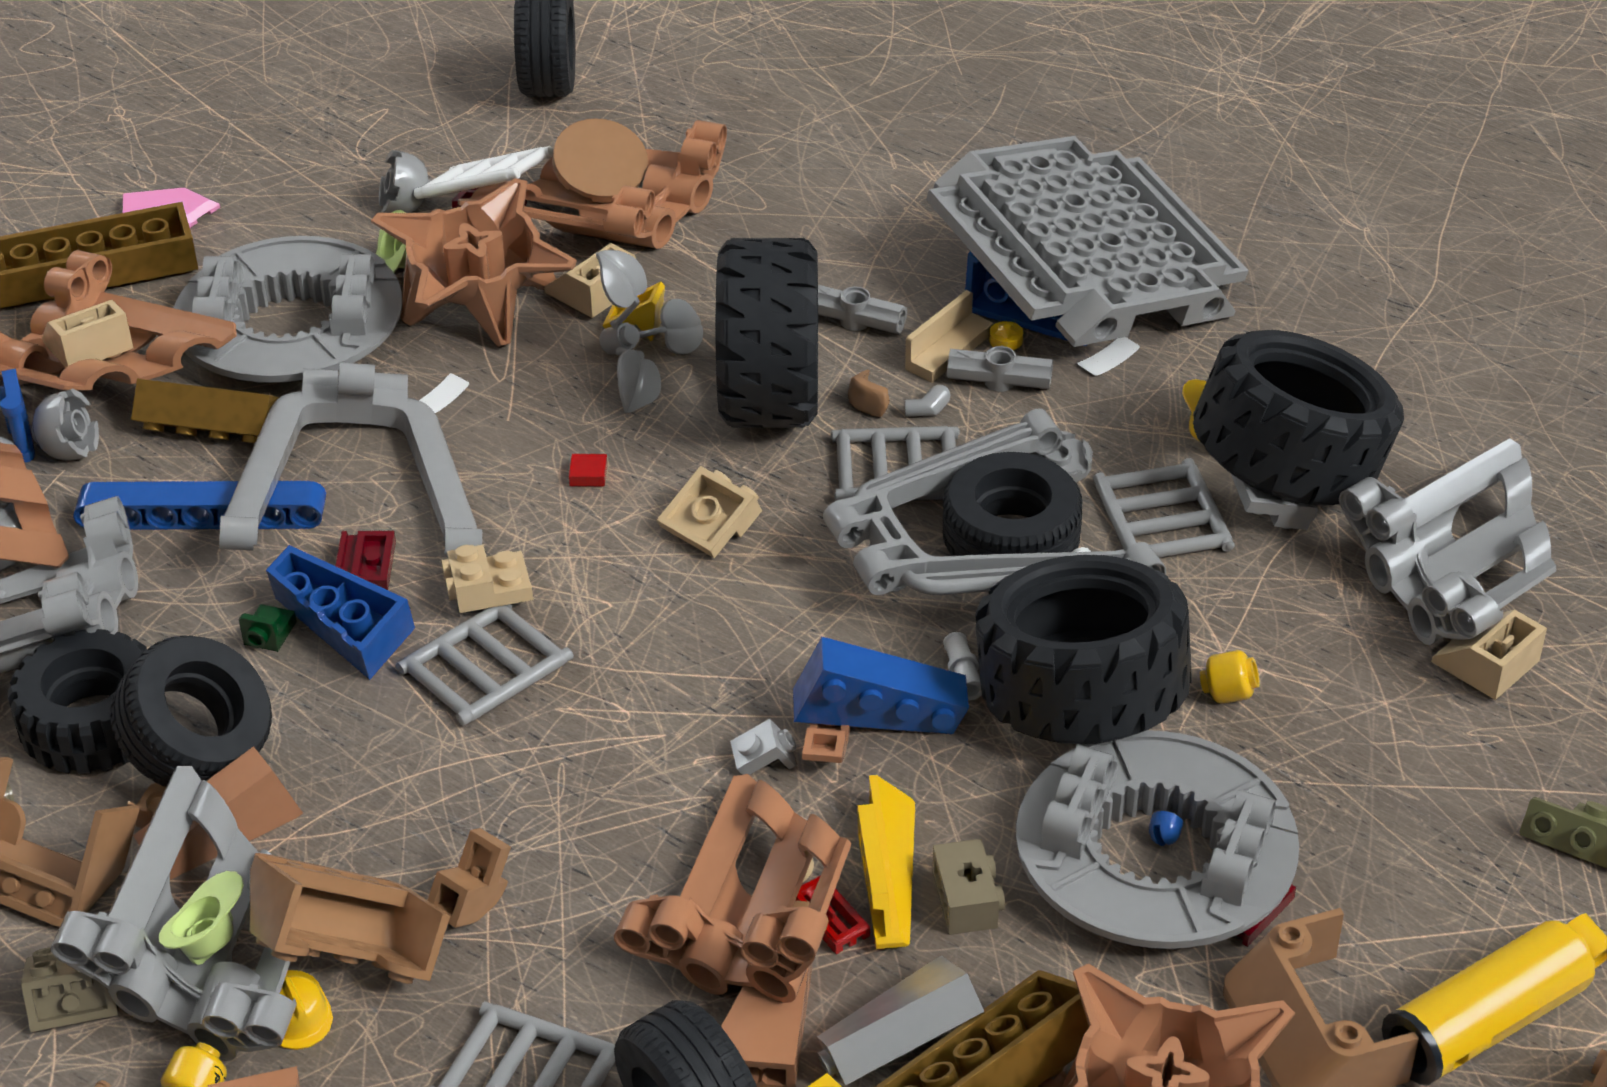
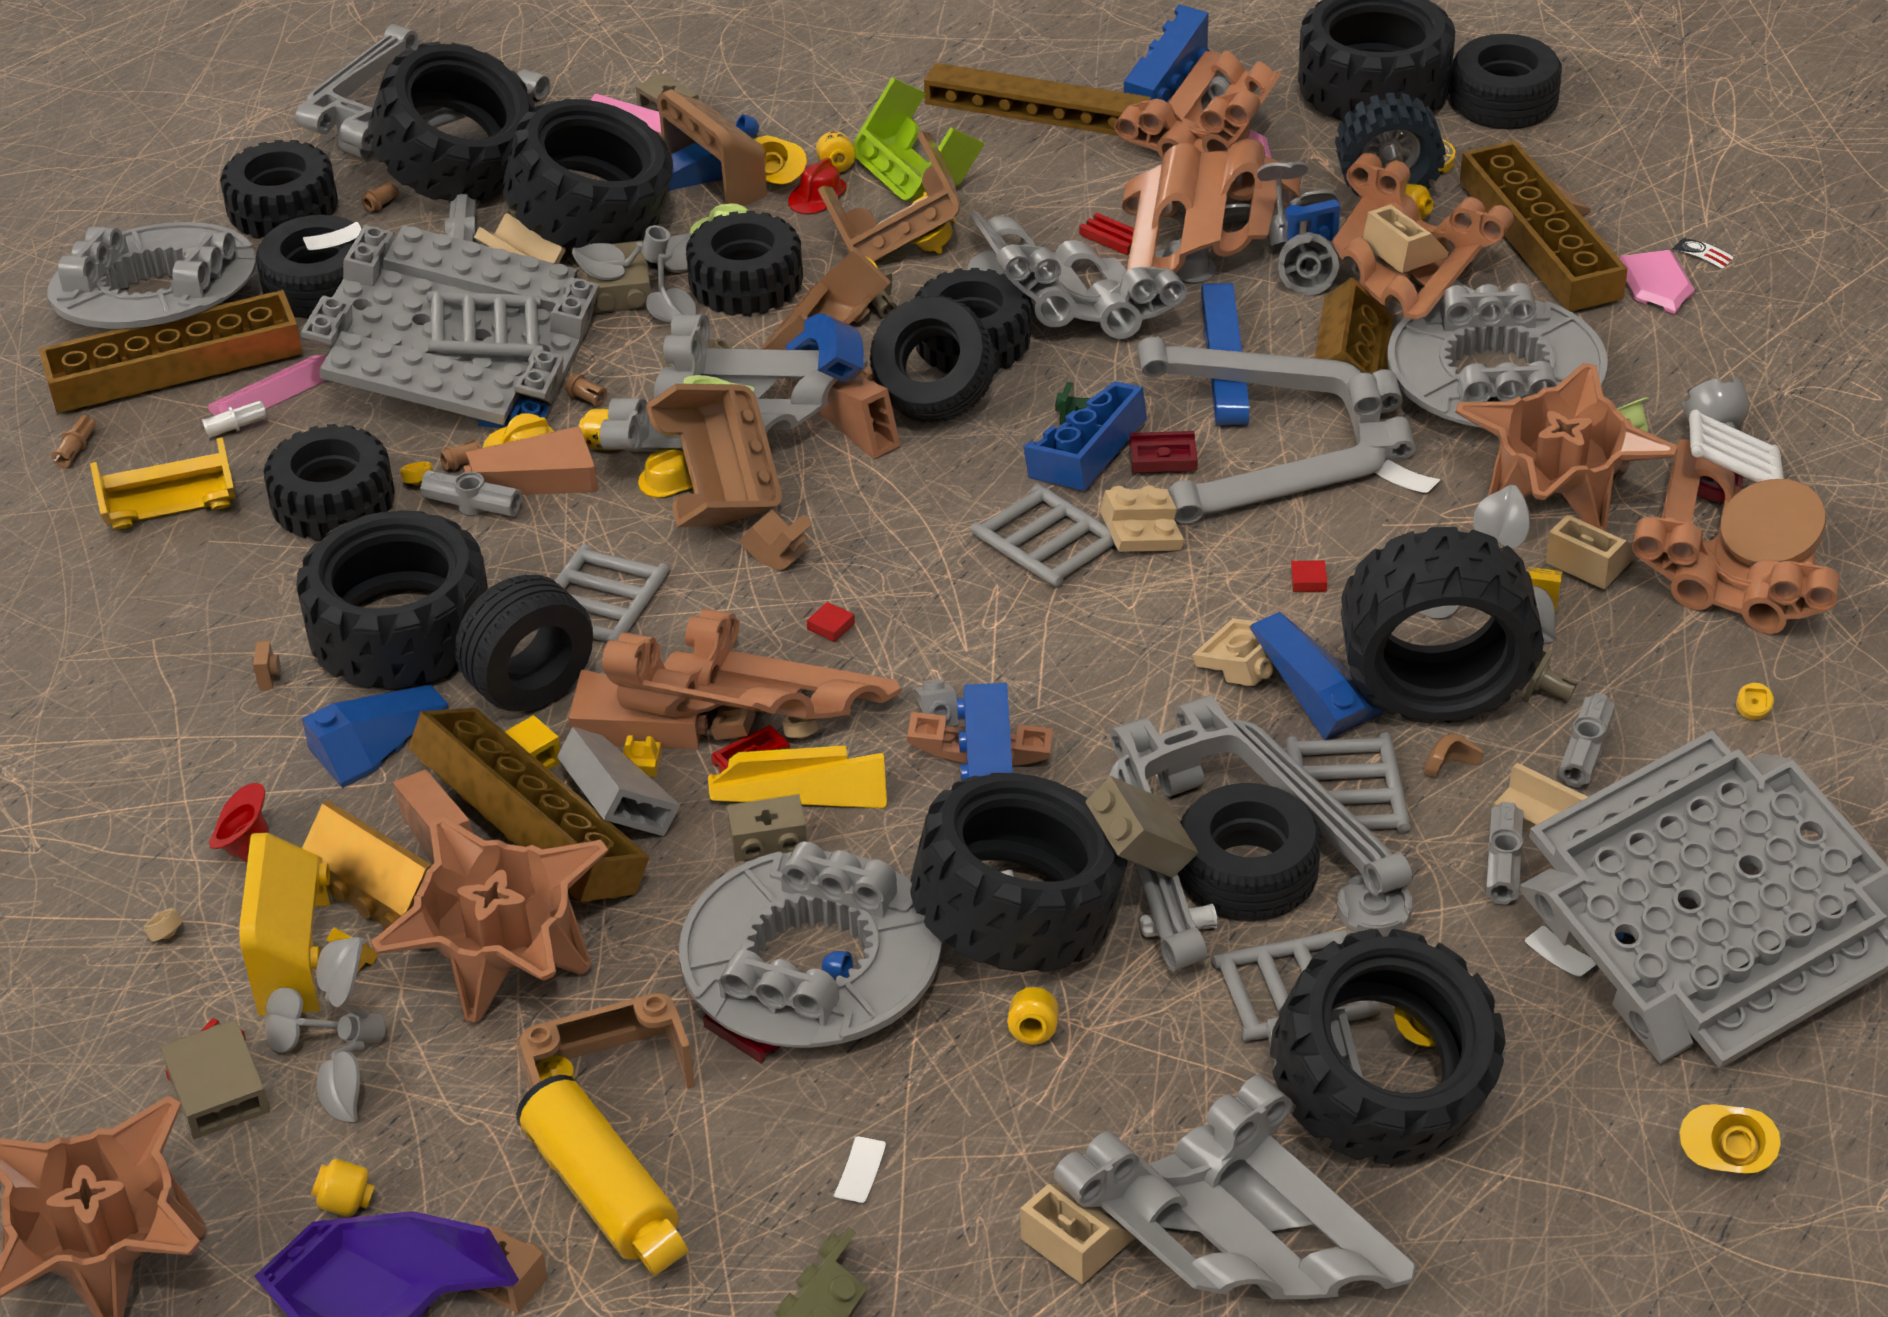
camera: 90 degrees right, 0 degrees up
(121, 179) = (1704, 251): none -> sticker
(181, 765) = (837, 342): none -> blue arch
(609, 845) = (830, 621): none -> red tile
(784, 455) = (1314, 677): none -> blue wedge
(805, 216) = (1754, 701): none -> yellow tile
(831, 1008) = (644, 754): none -> yellow tile
(930, 404) = (1447, 806): light grey arm -> none
(1048, 540) = (1141, 827): none -> dark tan brick
(1332, 273) = (1730, 1138): none -> yellow piece
(1428, 817) = (860, 1169): none -> white sticker

